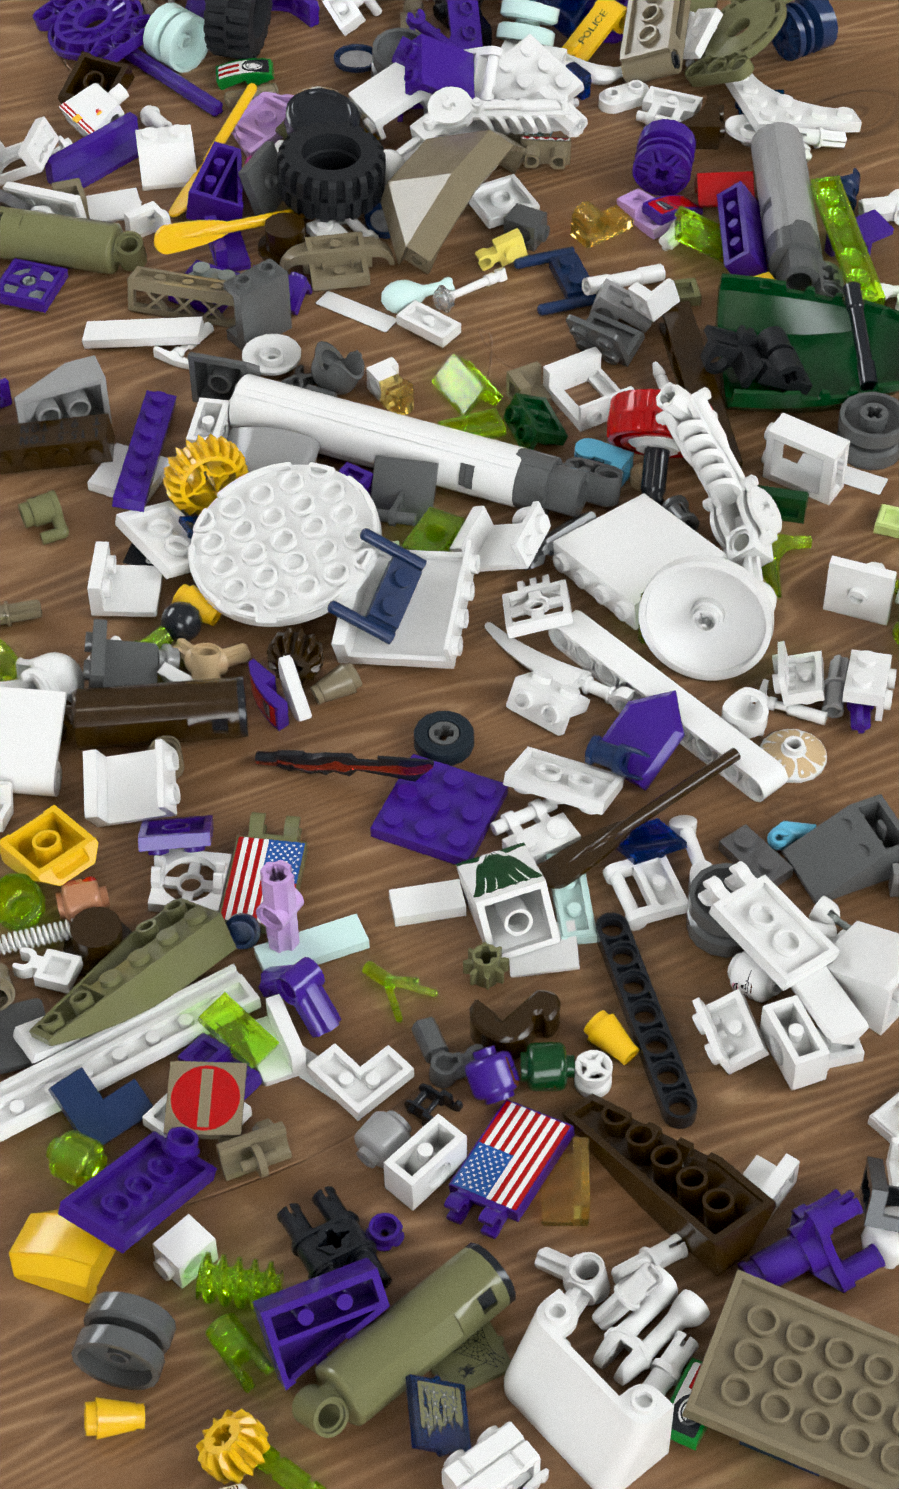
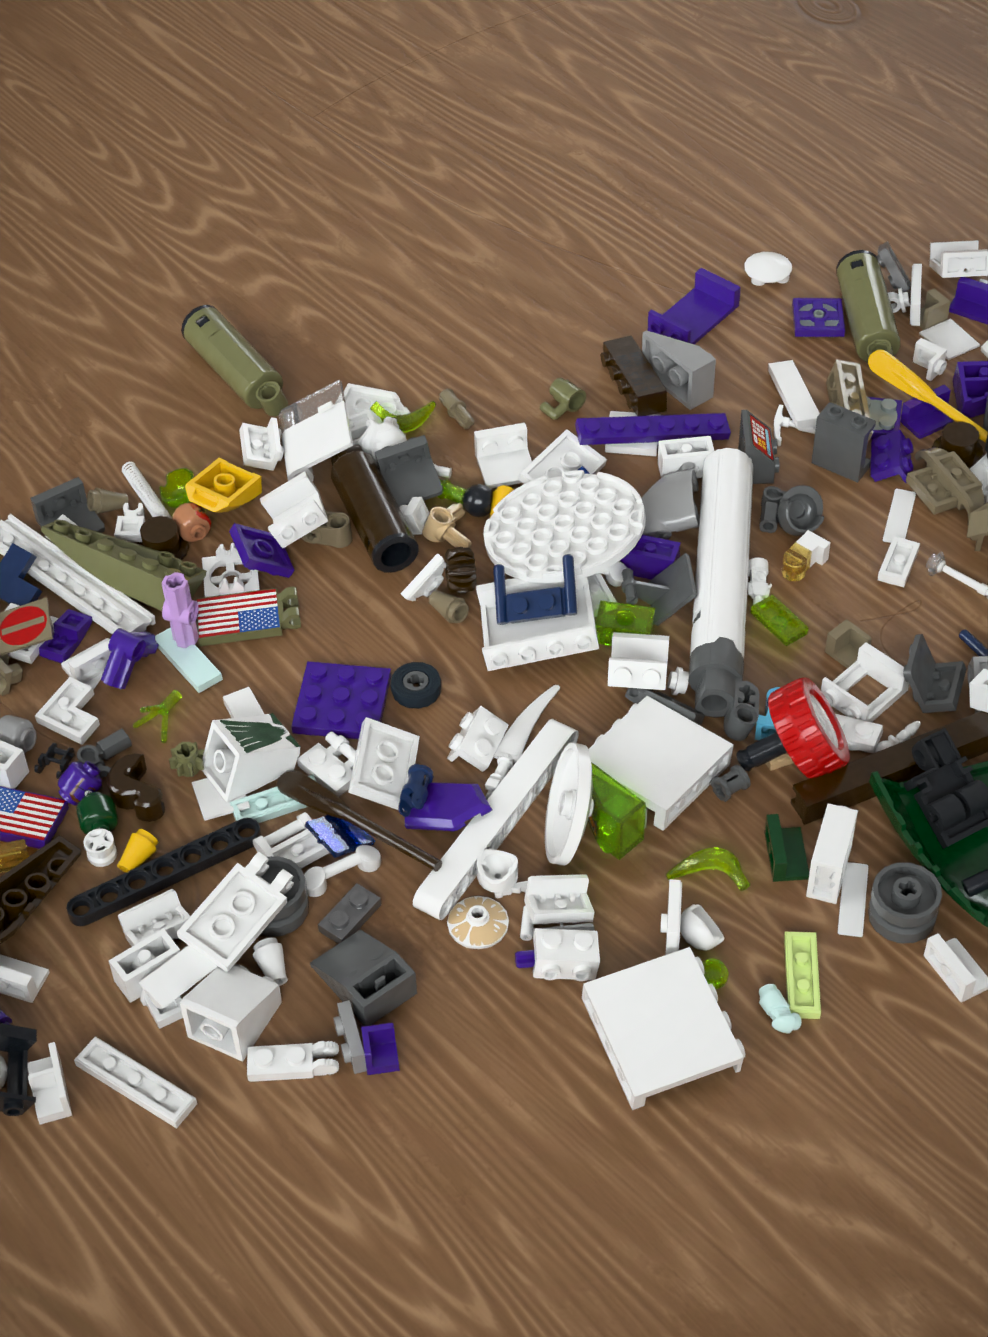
camera: 75 degrees right, 0 degrees up
(169, 655) = (438, 500): light grey plate -> none
(185, 474) = (628, 458): yellow gear -> none
(238, 1030) = (90, 629): clear neon green plate -> none
(266, 697) = (416, 564): dark purple slope -> none
(273, 353) = (804, 470): white dish -> none
(345, 763) = (361, 592): black sword -> none
(403, 292) = (931, 541): light aqua piece -> none
(464, 385) = (834, 604): clear neon green panel -> none
(533, 421) = (807, 659): dark green bracket -> none
(546, 594) = (582, 697): white piece -> none
(740, 528) = (728, 817): white piece -> none
(787, 833) = (380, 929): medium azure arm -> none
(828, 912) = (298, 972): white hinge -> none

